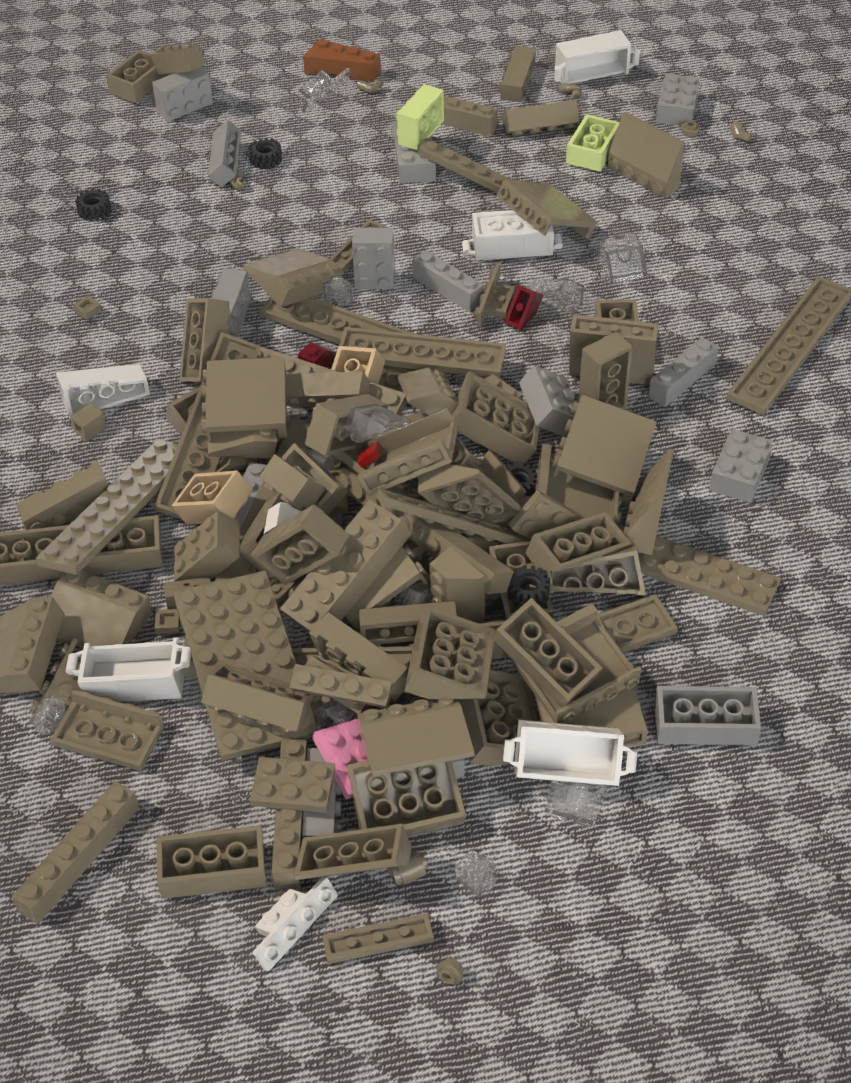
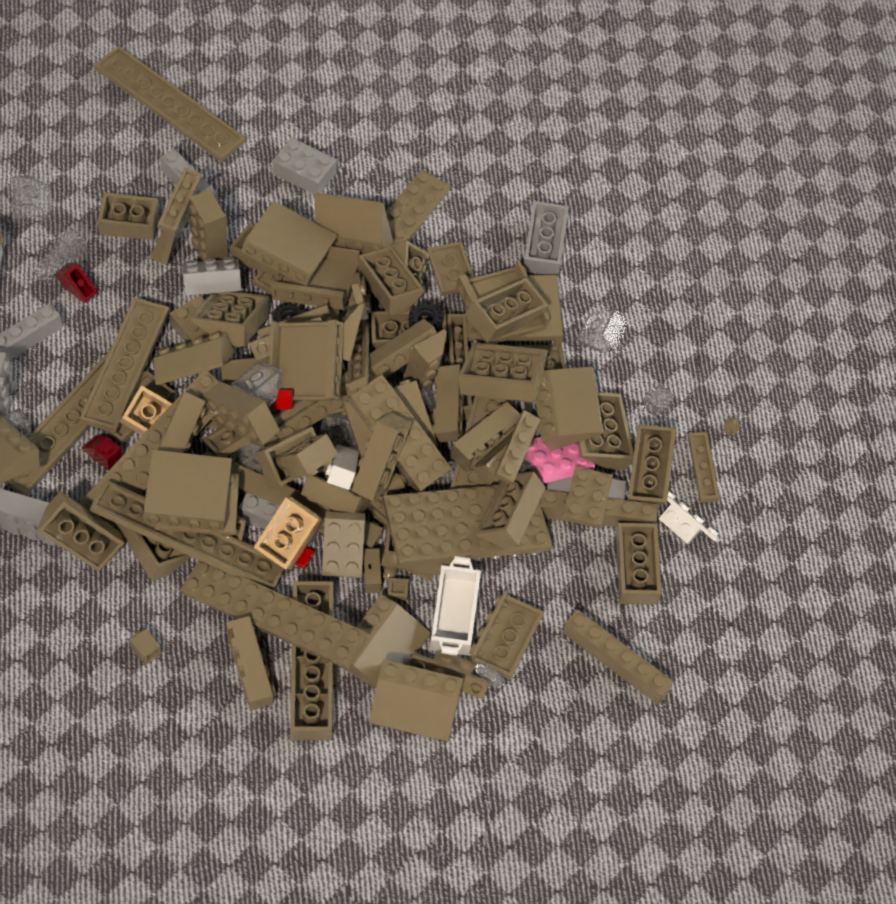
camera: 90 degrees left, 10 degrees up
(102, 386) = (105, 632): white wedge -> none
(496, 297) = (62, 300): dark tan bracket -> none
(569, 753) = (577, 321): white container -> none

